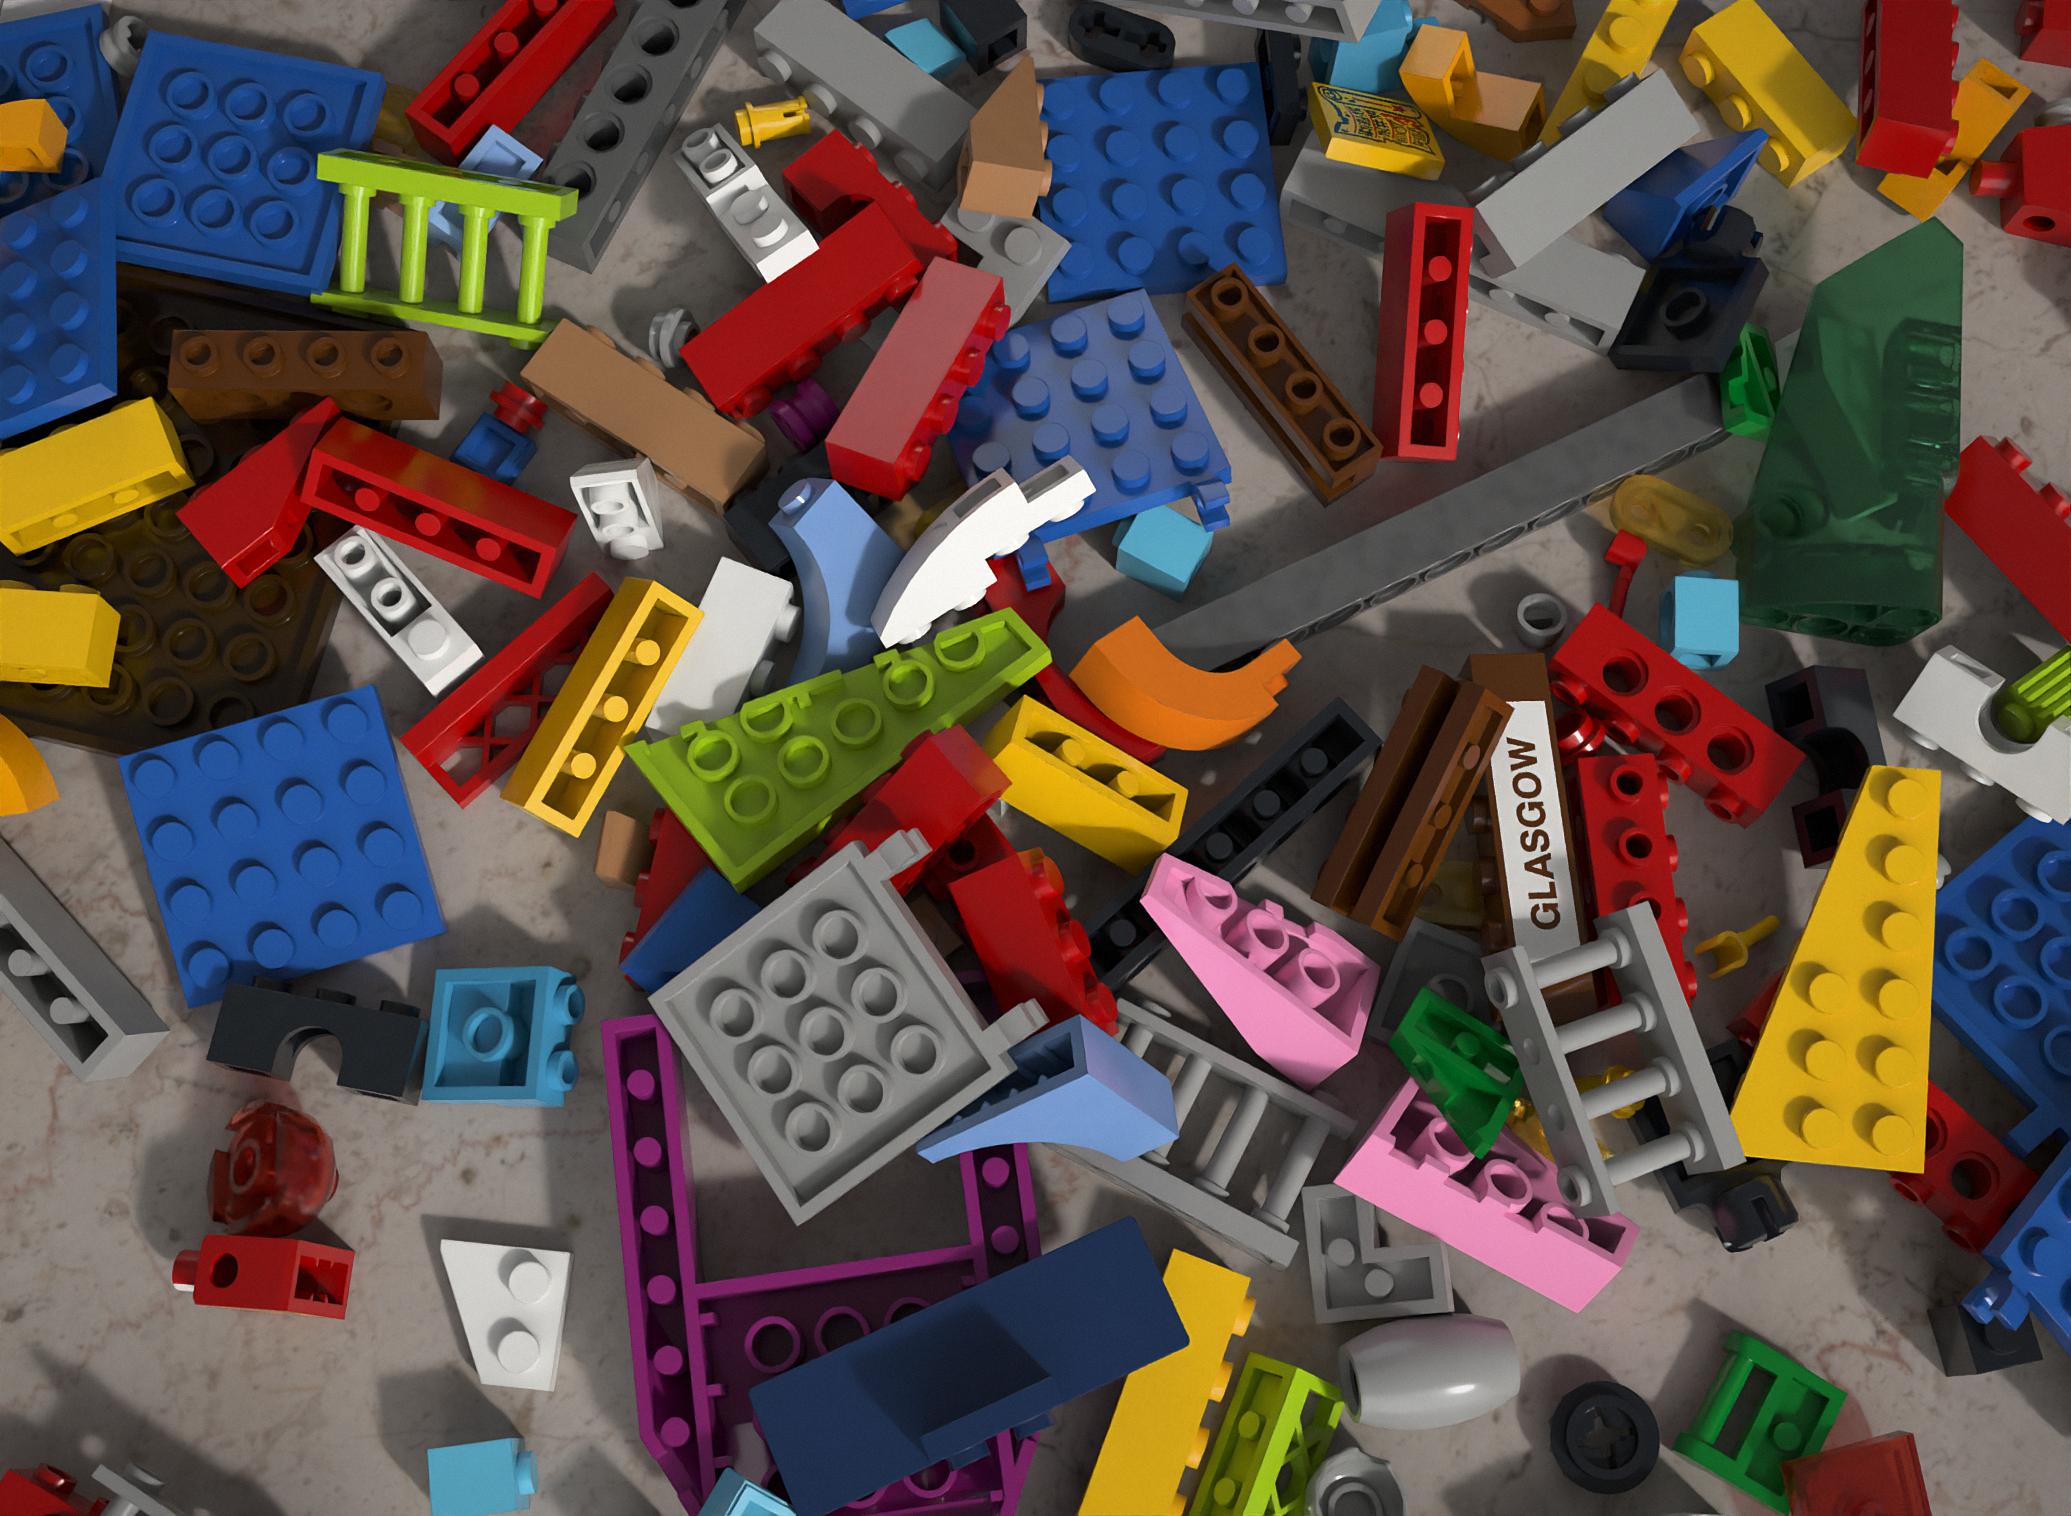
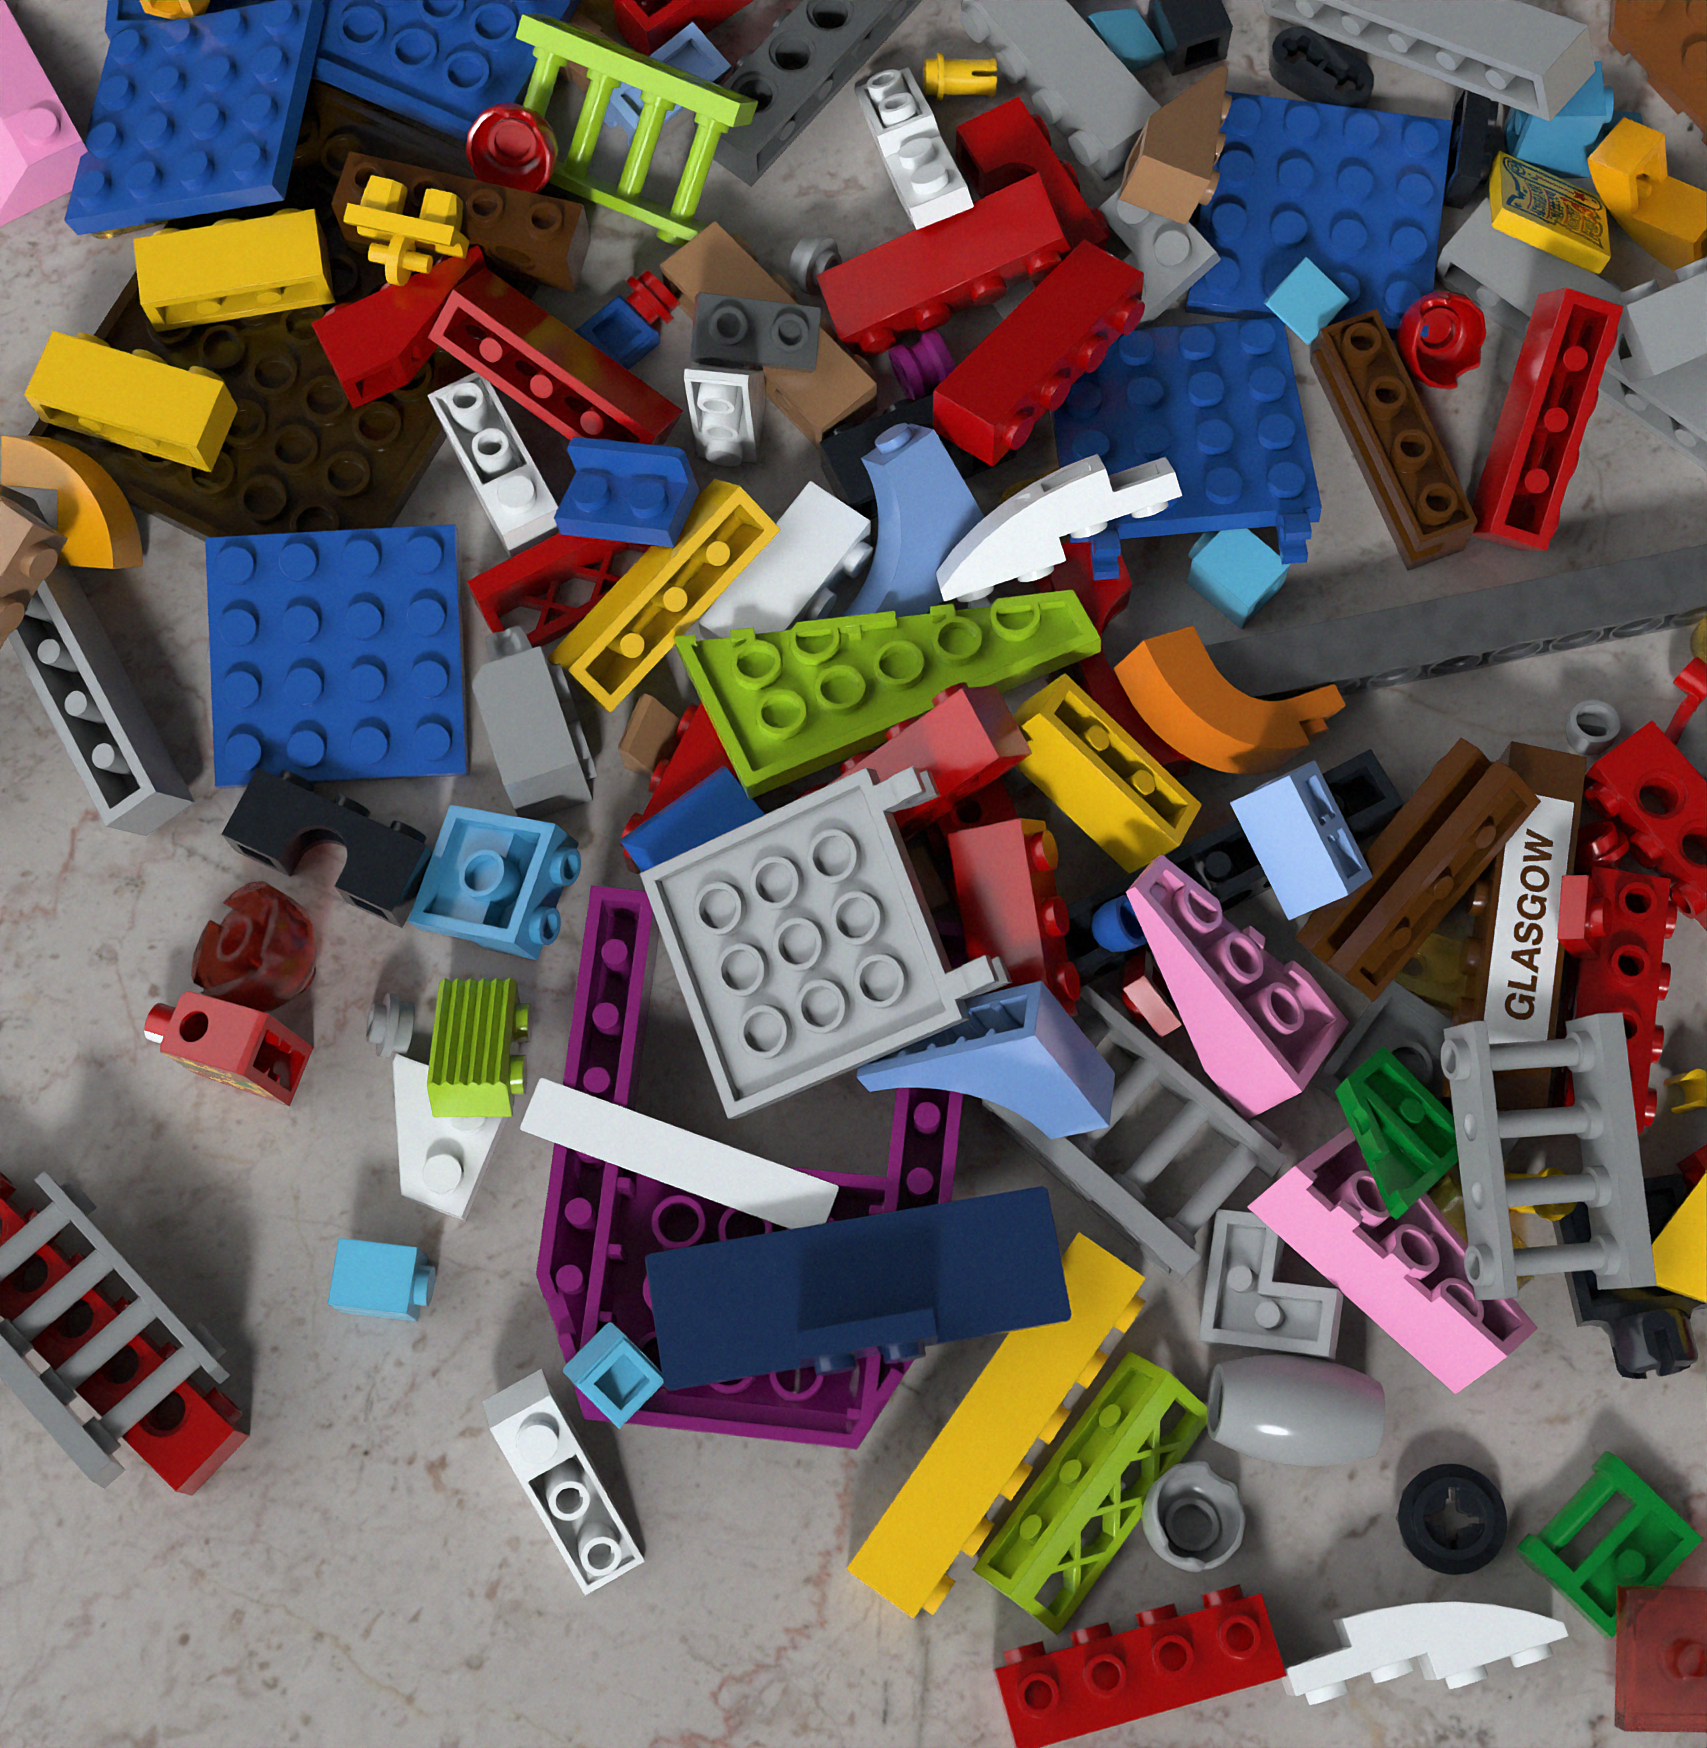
camera: 20 degrees right, 0 degrees up
(222, 391) = (382, 219): none -> yellow hips
(340, 290) = (512, 147): none -> red hair
(429, 1211) = (390, 1025): none -> light grey plate
(496, 872) = (532, 727): none -> light grey hinge
(523, 1215) = (477, 1048): none -> lime brick
(541, 612) = (627, 492): none -> blue bracket
(630, 422) = (754, 333): none -> dark grey plate
(755, 1278) = (677, 1157): none -> white sticker
(1137, 934) = (1117, 926): none -> blue hinge
(1164, 268) = (1306, 300): none -> medium azure slope
(1181, 990) = (1148, 994): none -> red plate
(1295, 804) = (1301, 840): none -> light blue hinge
(1312, 275) = (1452, 342): none -> red hair
(1583, 812) = (1583, 916): none -> red plate

